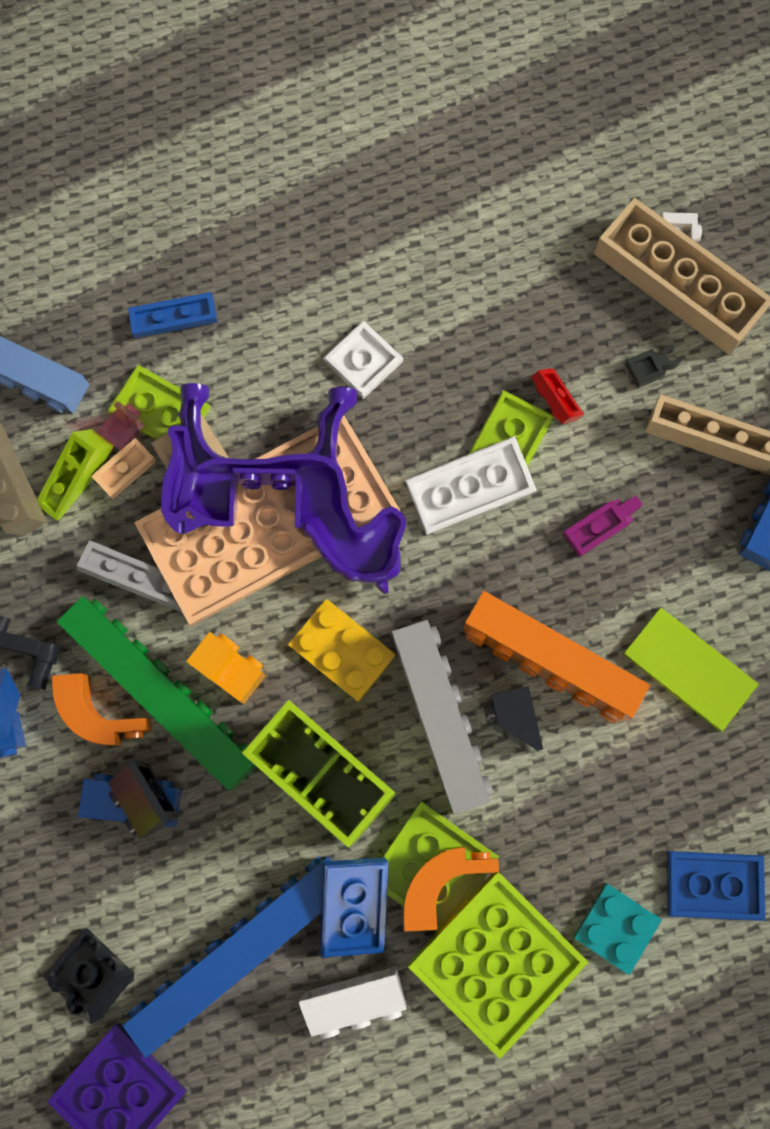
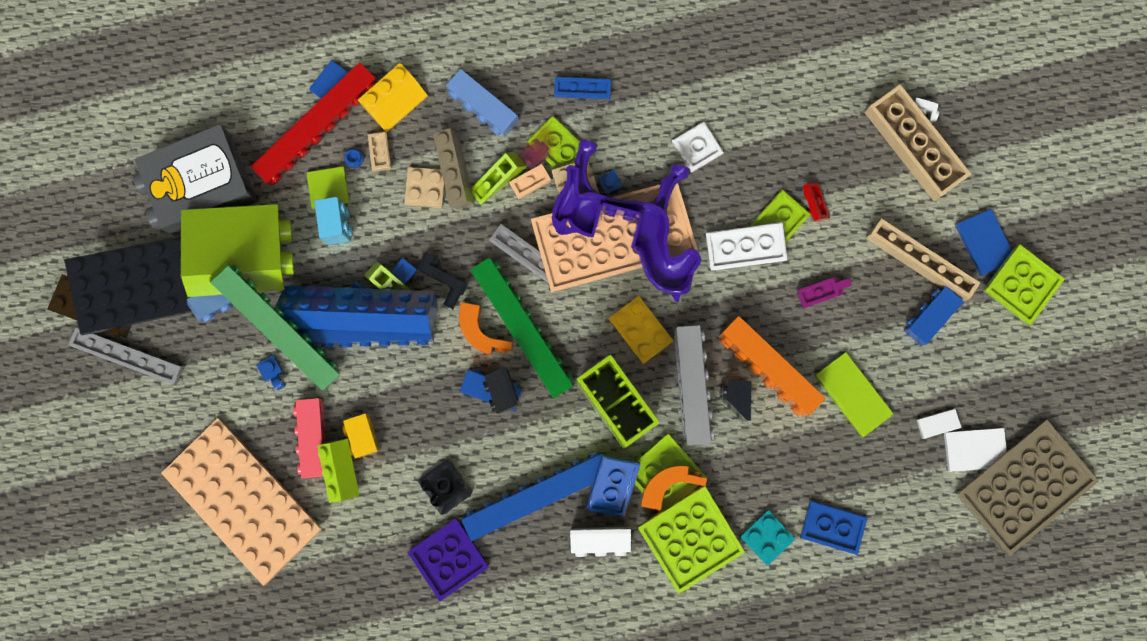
camera: 15 degrees right, 5 degrees up
(222, 664) = (568, 324): light orange brick -> none
(245, 441) = (610, 183): none -> blue plate
(650, 367) = (880, 196): pearl dark grey plate -> none

